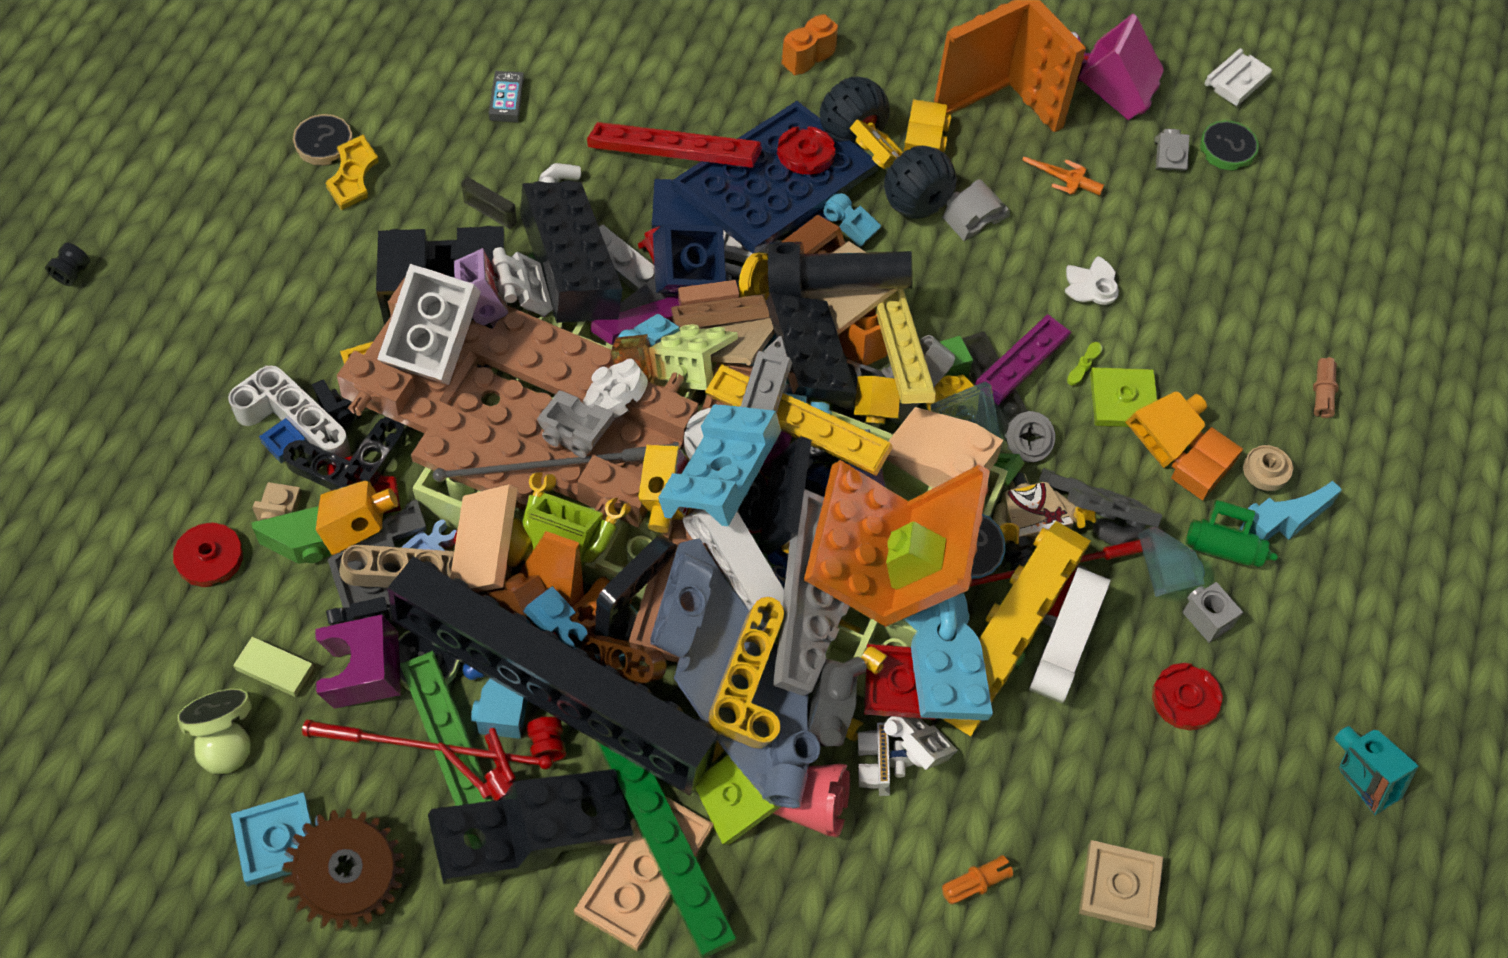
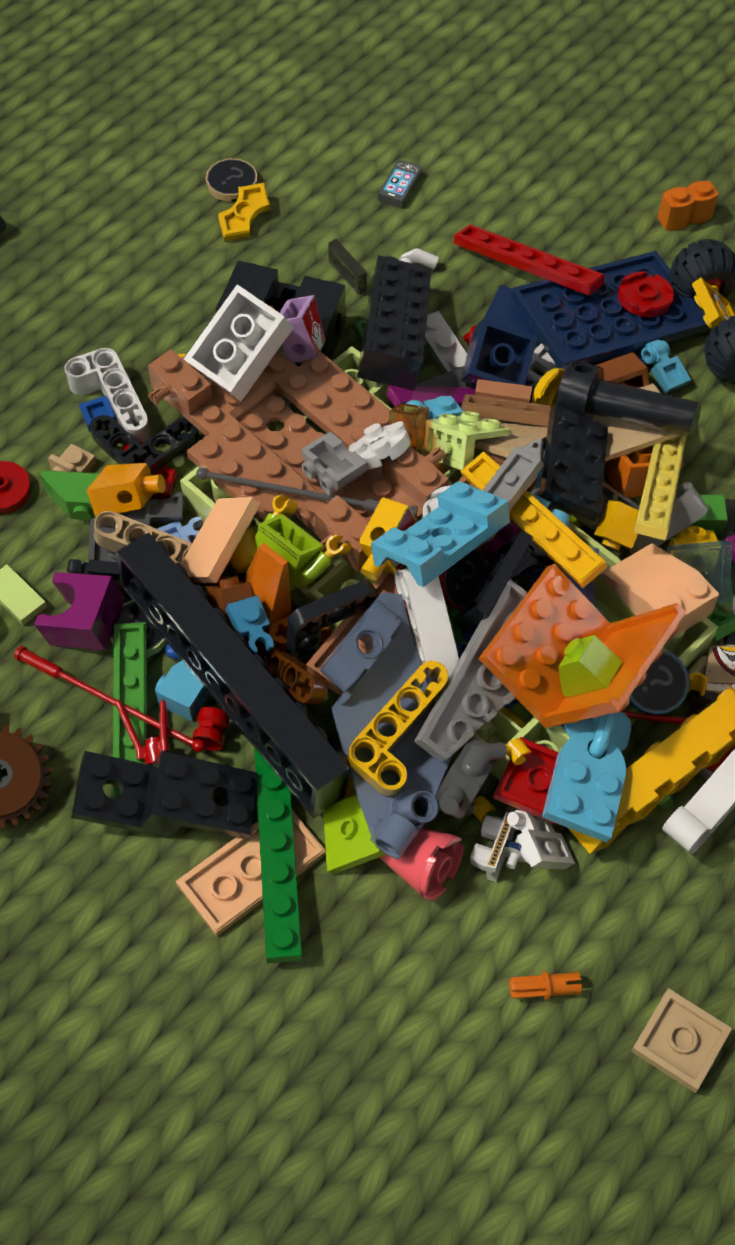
camera: 25 degrees right, 0 degrees up
(333, 405) = (149, 407): black bracket -> none
(521, 278) = (344, 337): white plate -> none

